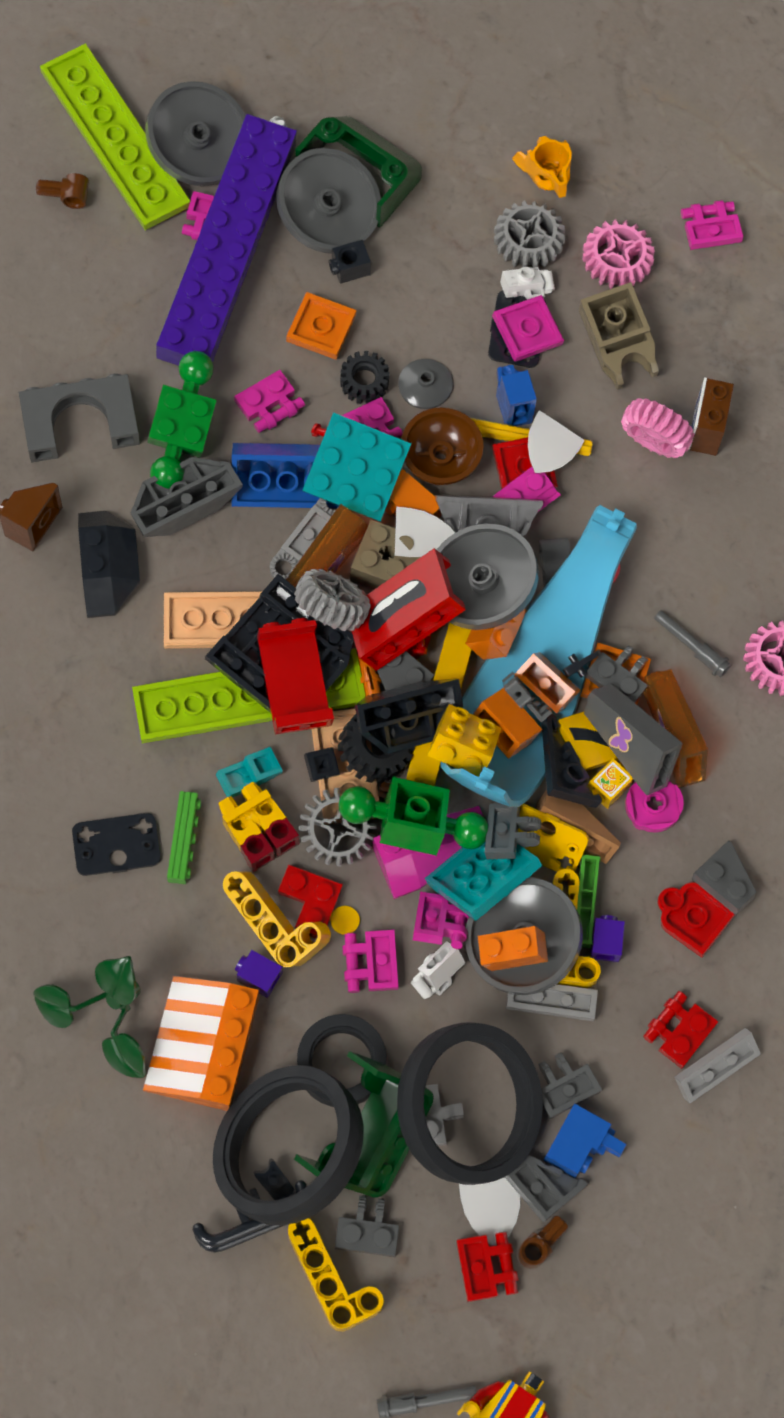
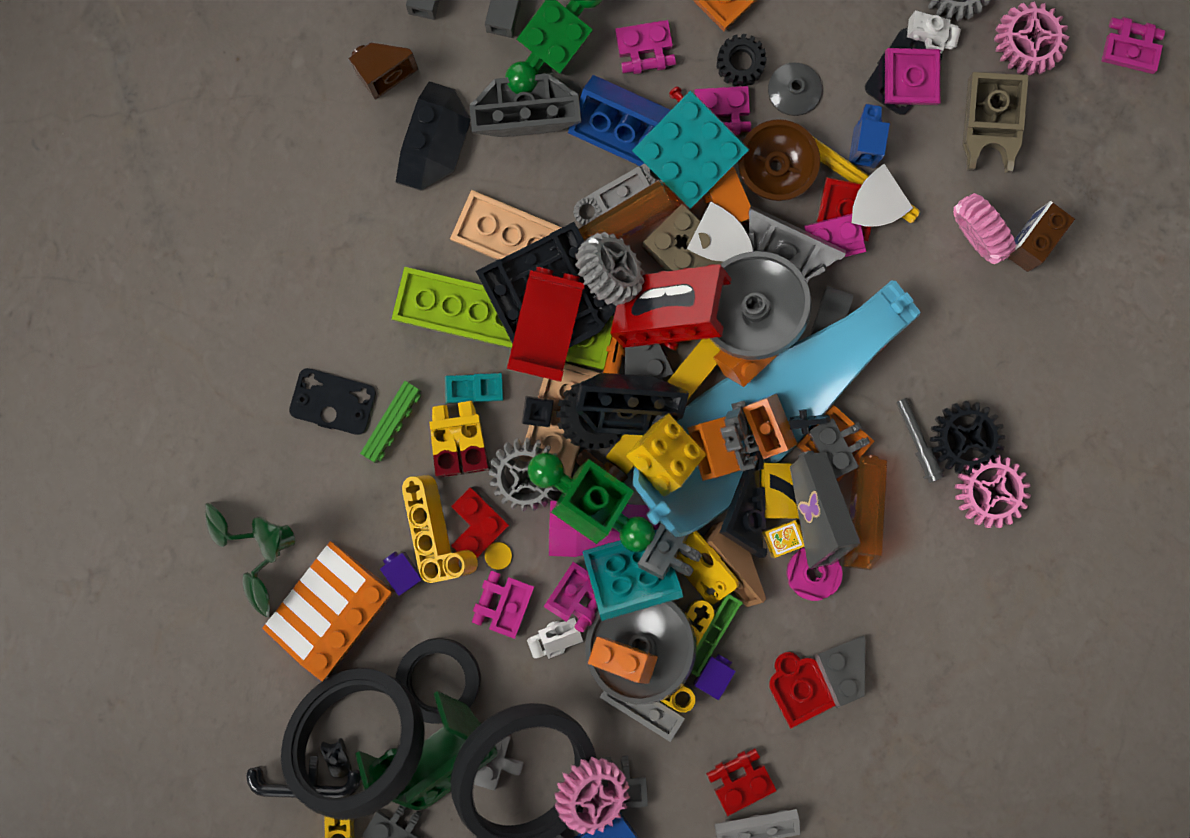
camera: 25 degrees right, 15 degrees up
(530, 1081) = (585, 789): none -> bright pink gear
(713, 619) = (981, 420): none -> black gear

